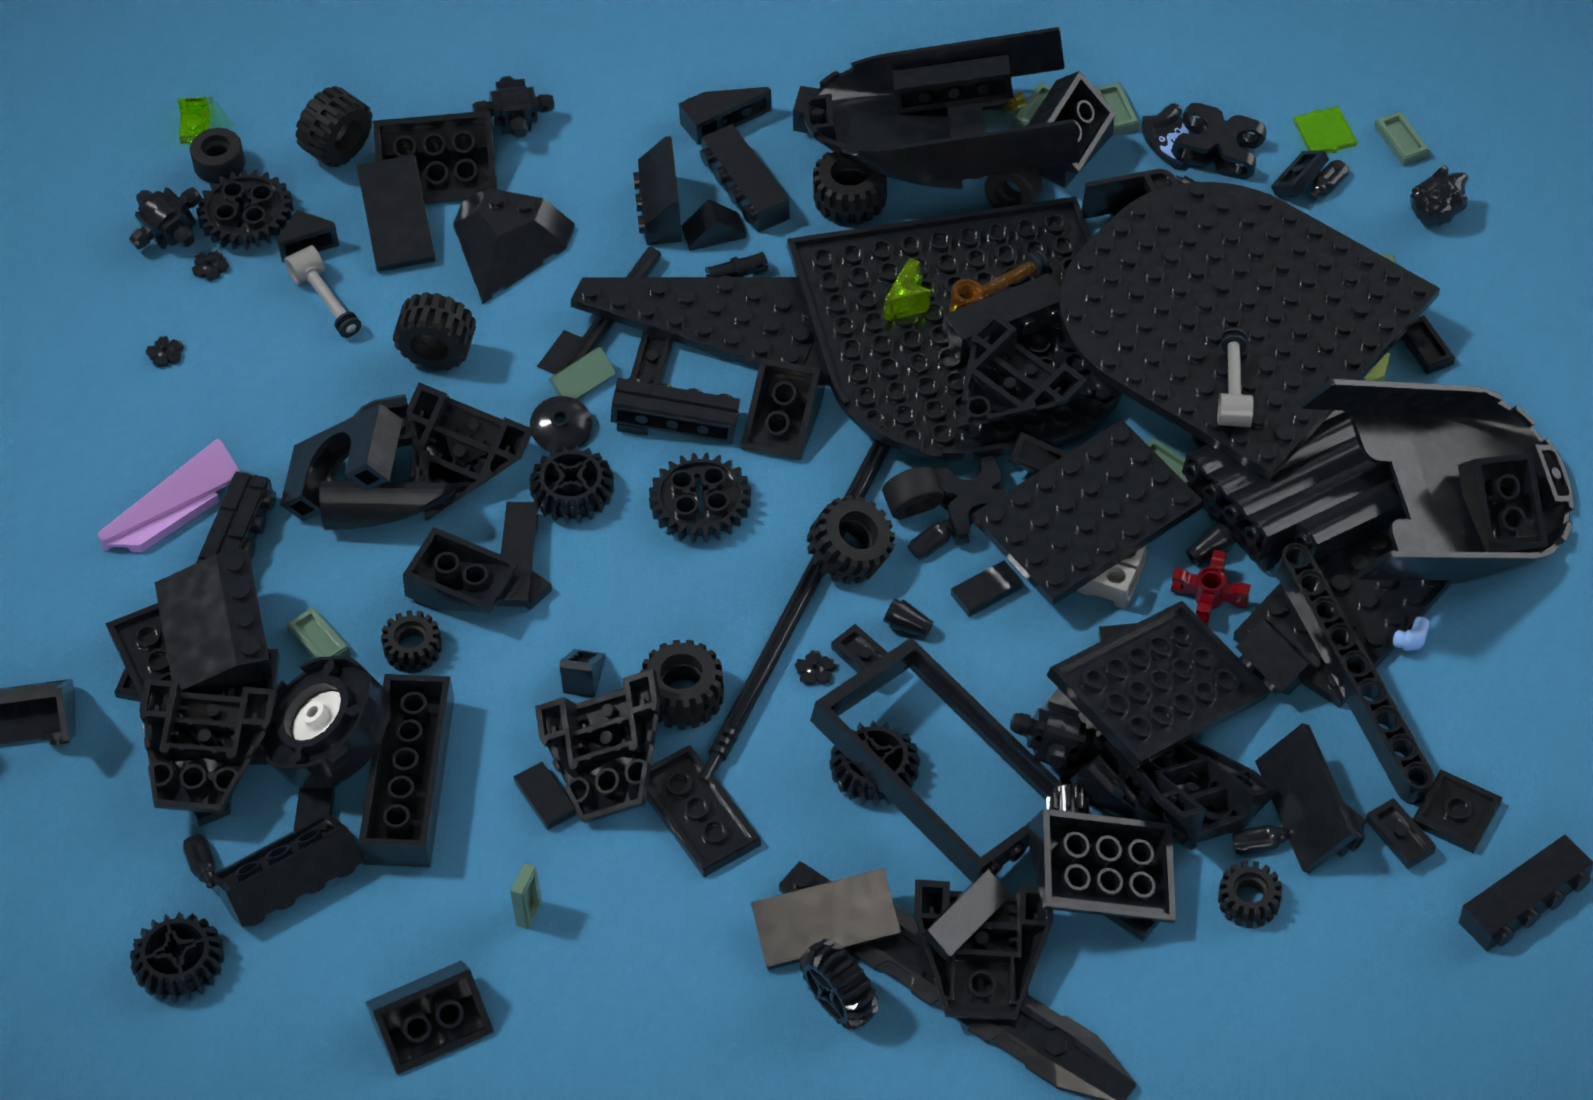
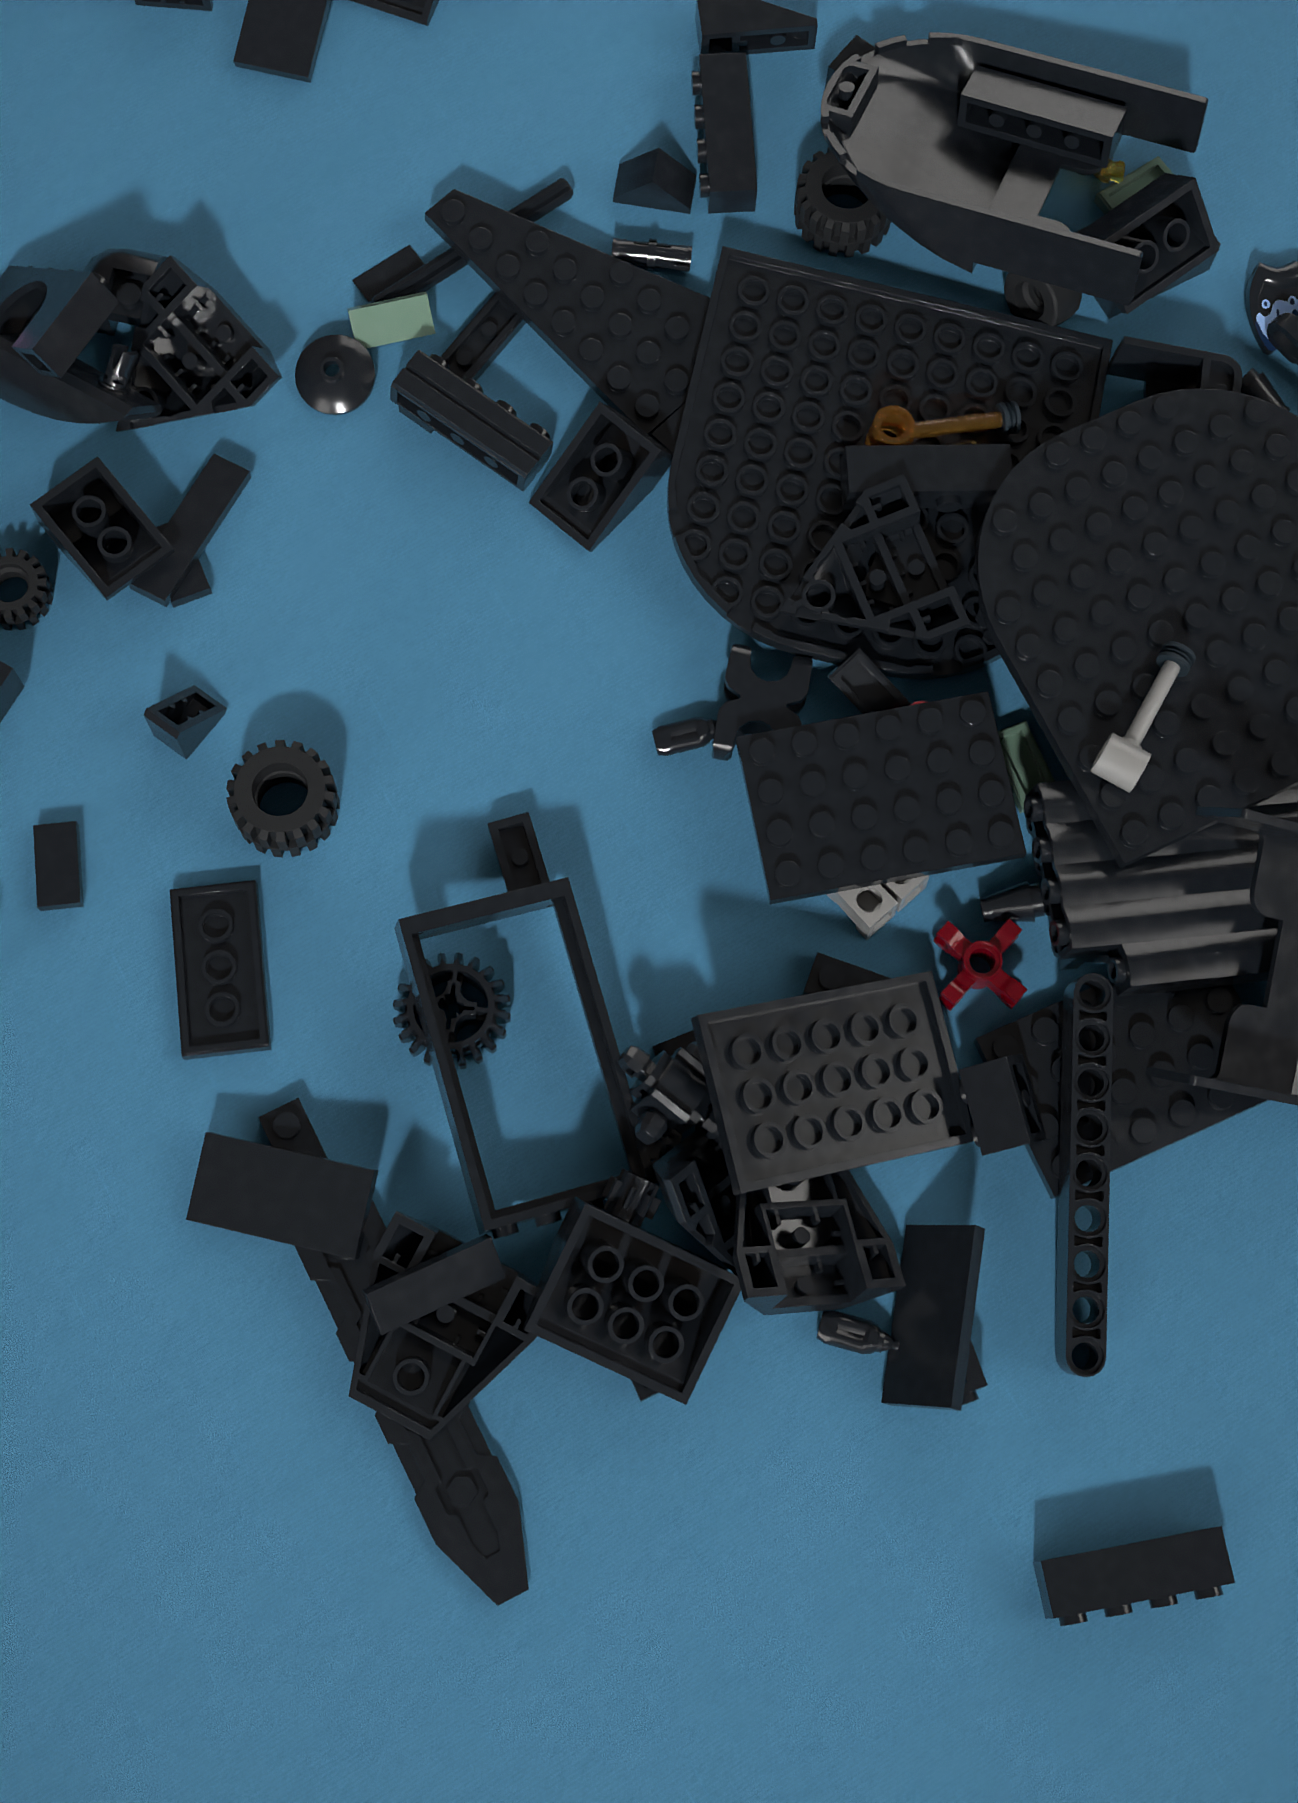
camera: 20 degrees right, 20 degrees up
(307, 266) = (152, 26): light grey piece -> none
(434, 331) = (241, 185): black tyre -> none
(508, 237) = (406, 91): black wedge -> none
(572, 473) = (329, 449): black gear -> none
(604, 745) = (144, 841): black wedge -> none
(658, 195) = (609, 113): black slope -> none
(723, 493) = (405, 542): black gear -> none
(783, 630) = (471, 755): black axle -> none
(814, 668) = (456, 844): black plant -> none
(839, 984) = (244, 1295): black gear -> none
(862, 522) = (611, 691): black tyre -> none
(906, 294) = (818, 393): clear neon green slope -> none
(907, 618) = (594, 830): black cone -> none
(913, 492) = (690, 665): black tyre -> none
(986, 588) = (712, 833): black tile -> none
(1125, 118) = (1234, 229): sand green tile -> none
(1250, 877) = (826, 1397): black tyre -> none
(1400, 833) = (1026, 1413): black plate -> none
(1413, 638) = (1195, 1152): light blue arm -> none
(1457, 811) = (1114, 1413): black tile -> none

